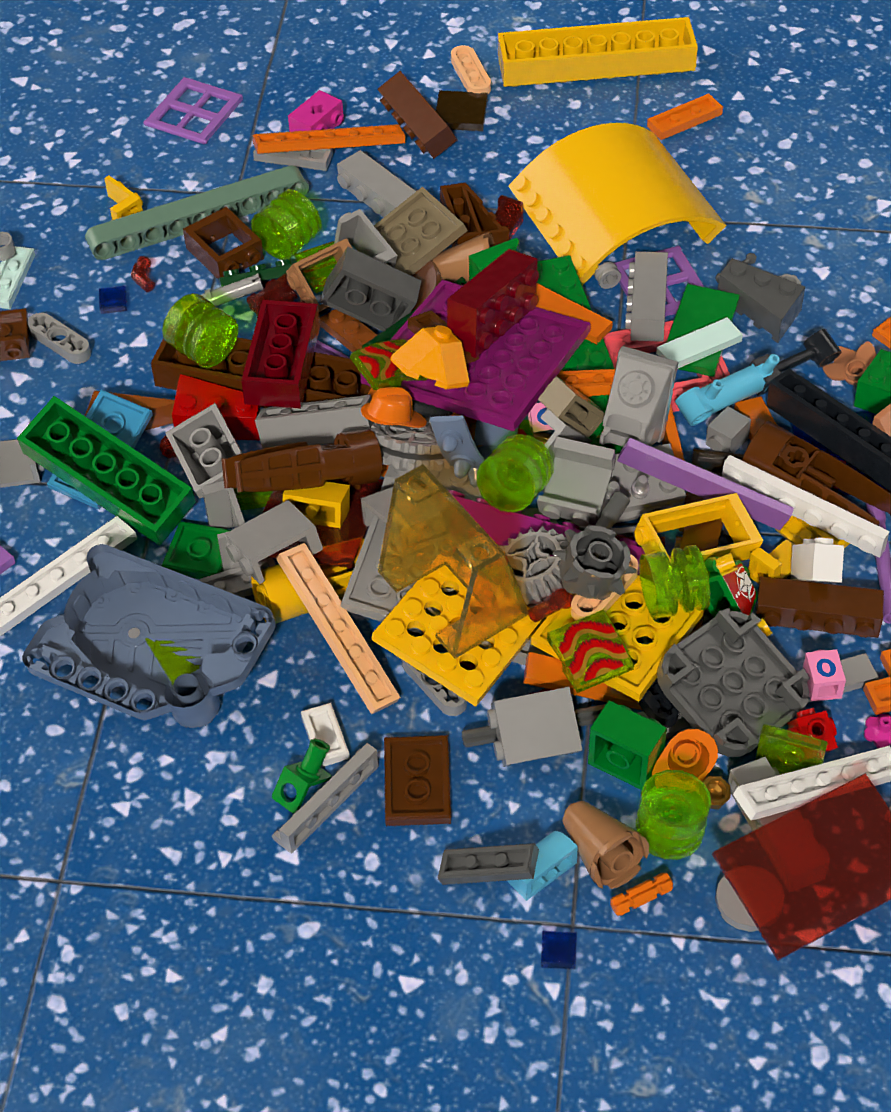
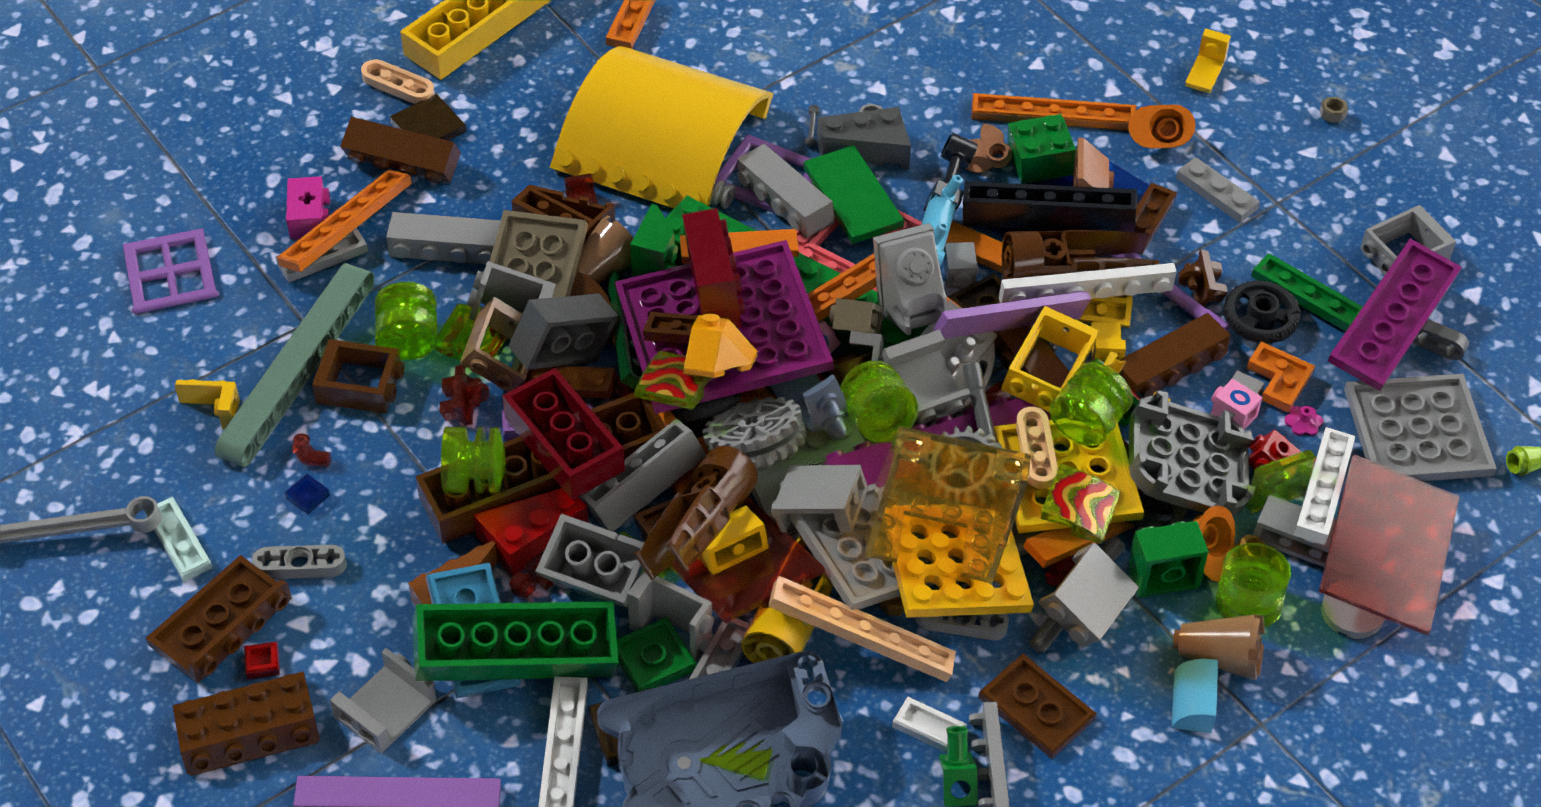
camera: 45 degrees left, 0 degrees up
(234, 290) = (408, 431): light grey pin -> none
(265, 274) = (423, 383): dark green plate -> none
(268, 535) = (744, 593): light grey panel -> none
(392, 407) = (717, 416): orange piece -> none
(488, 864) = (1169, 724): dark grey tile -> none
(558, 950) = (1274, 749): clear blue tile -> none
(594, 563) = (1030, 427): dark grey brick -> none
(641, 894) = (1284, 663): orange axle -> none
(701, 342) = (872, 205): light aqua tile -> none
(817, 561) = (1147, 322): white brick -> none

